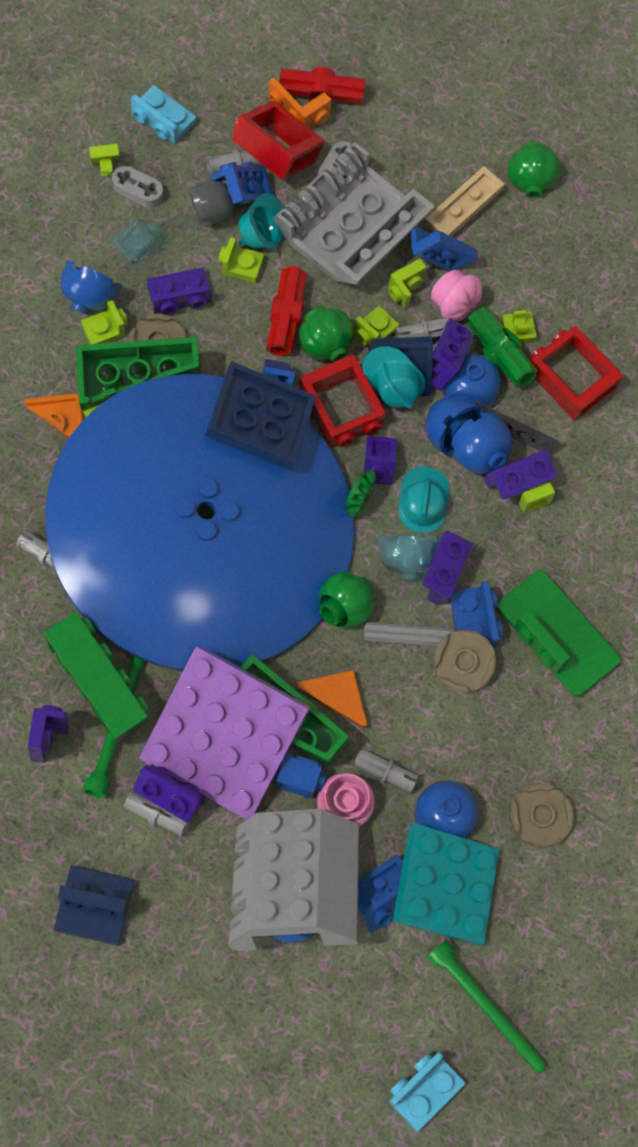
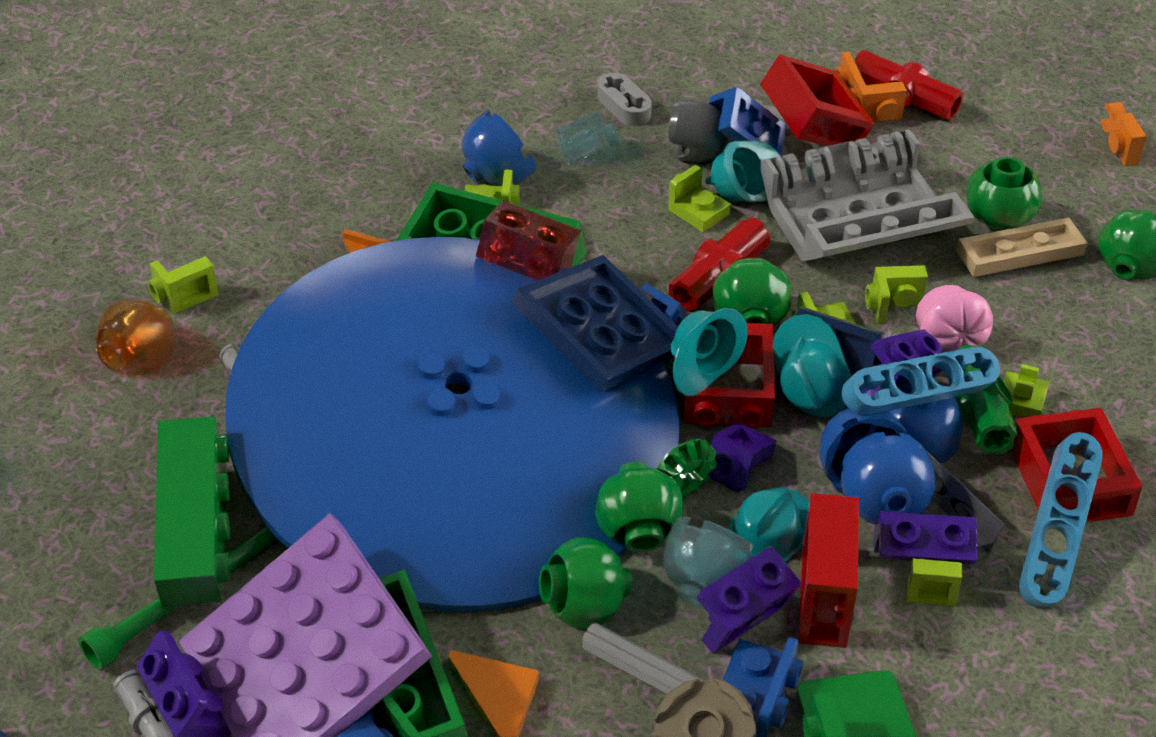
camera: 35 degrees right, 25 degrees down
(44, 722) = (77, 542): dark purple bracket -> none
(105, 156) = (604, 57): lime tile -> none
(163, 114) = (698, 51): medium azure bracket -> none
(179, 291) = (602, 202): dark purple bracket -> none
(181, 377) = (527, 242): none -> clear red brick
(330, 401) = (706, 348): none -> teal piece
(350, 534) = (641, 503): none -> green plant
(438, 169) = (1004, 194): none -> green plant
(442, 249) = (959, 262): blue bracket -> none
(476, 370) = (920, 376): none -> dark azure beam
(481, 524) = (829, 570): none -> red window
(485, 70) = (1125, 134): none -> orange plate
(584, 423) = (1068, 522): none -> dark azure beam

